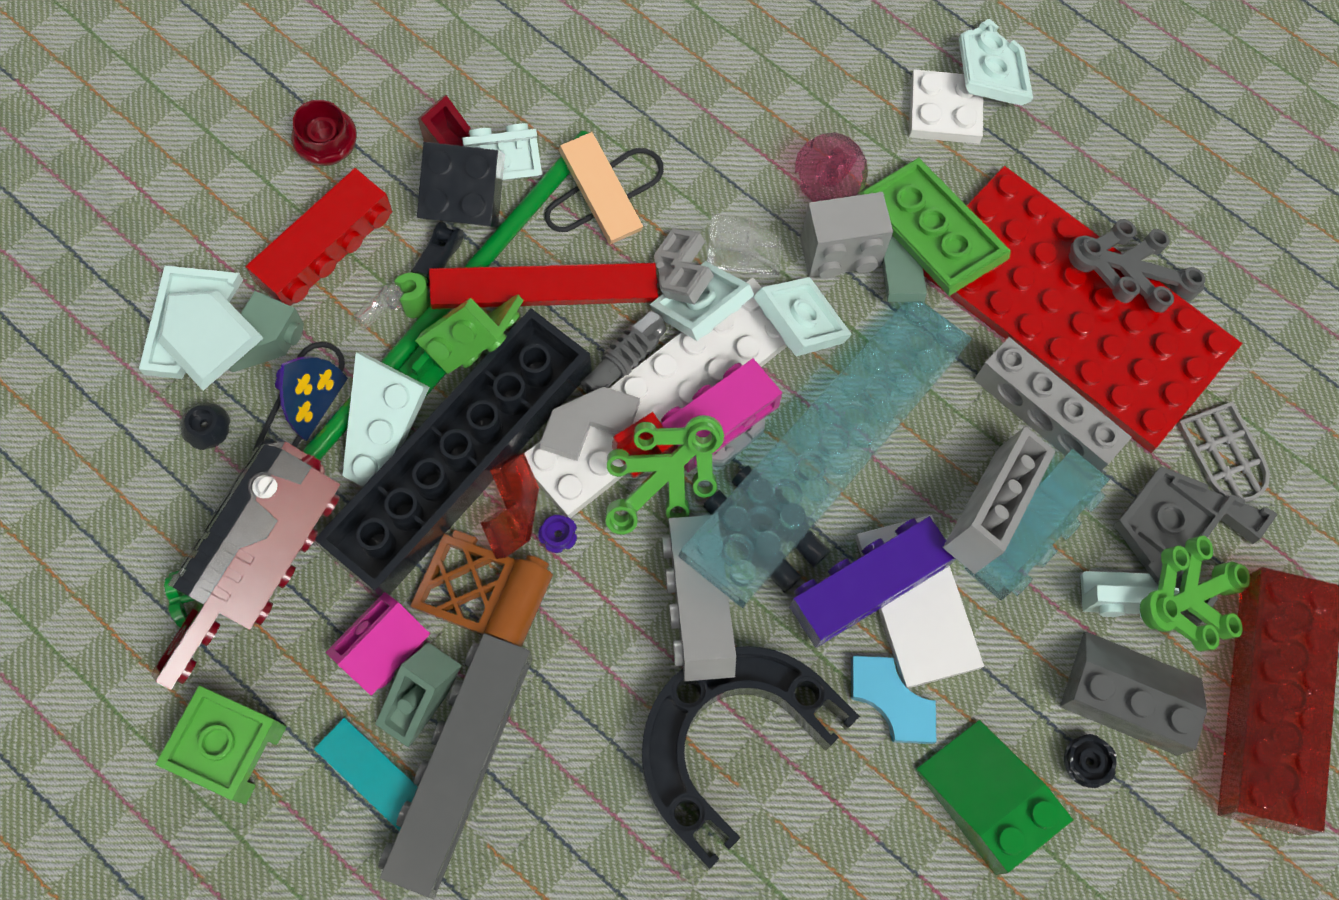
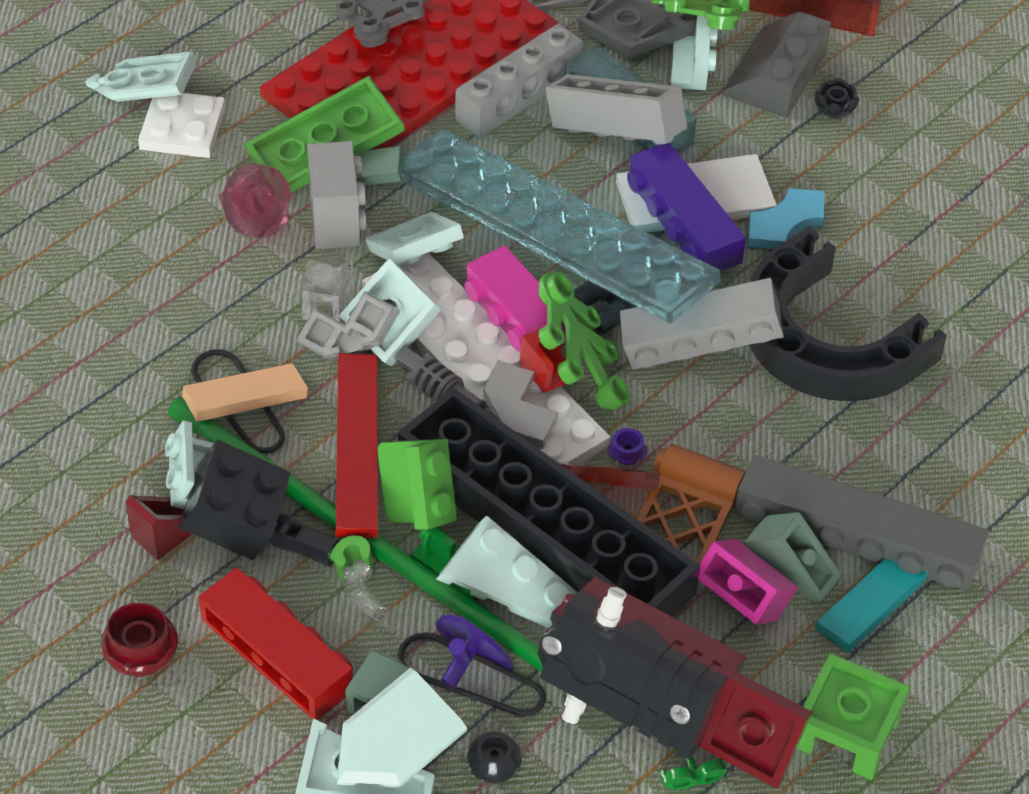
camera: 85 degrees left, 20 degrees down
(993, 798) = (872, 158): green slope -> none

